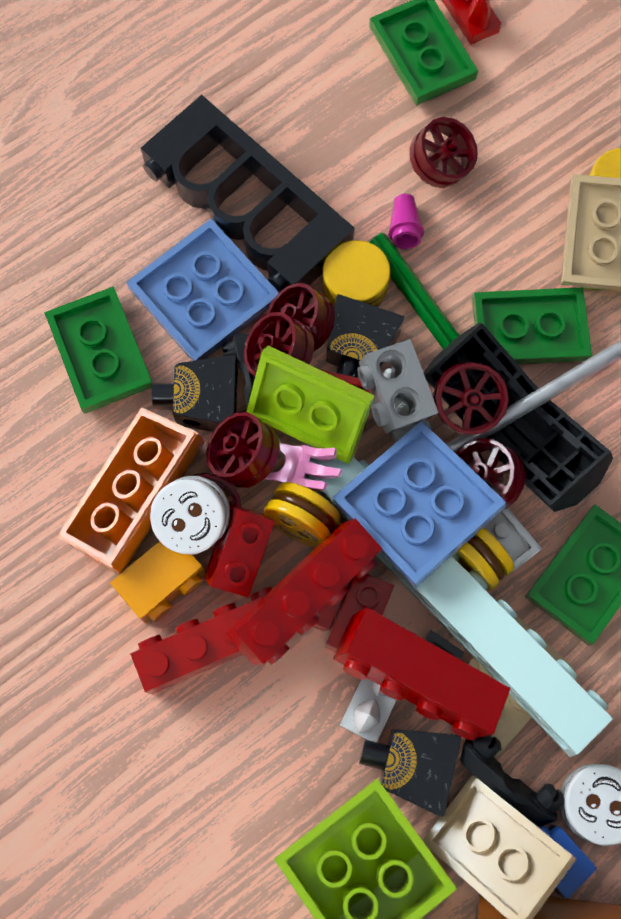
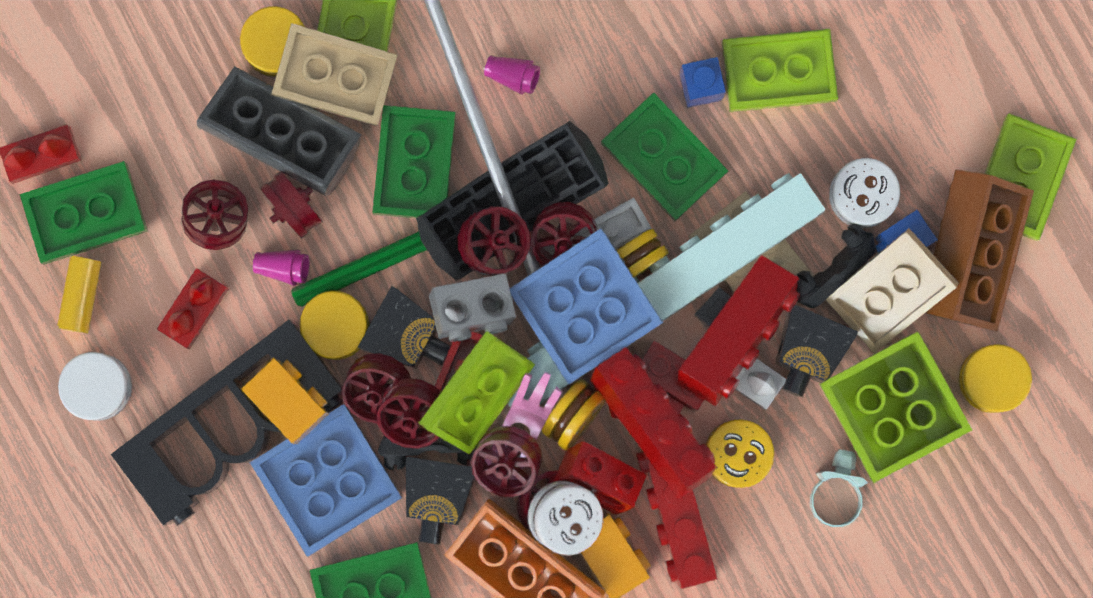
camera: 80 degrees left, 10 degrees up
(264, 80) = (95, 386): none -> white head
(273, 230) = (286, 400): none -> light orange brick
(286, 700) = (741, 453): none -> yellow head
(292, 822) = (844, 462): none -> light aqua piece
(346, 52) = (79, 294): none -> yellow brick
(350, 153) = (192, 308): none -> red tile
(466, 214) = (291, 204): none -> dark red wheel
(534, 198) = (280, 132): none -> dark grey brick

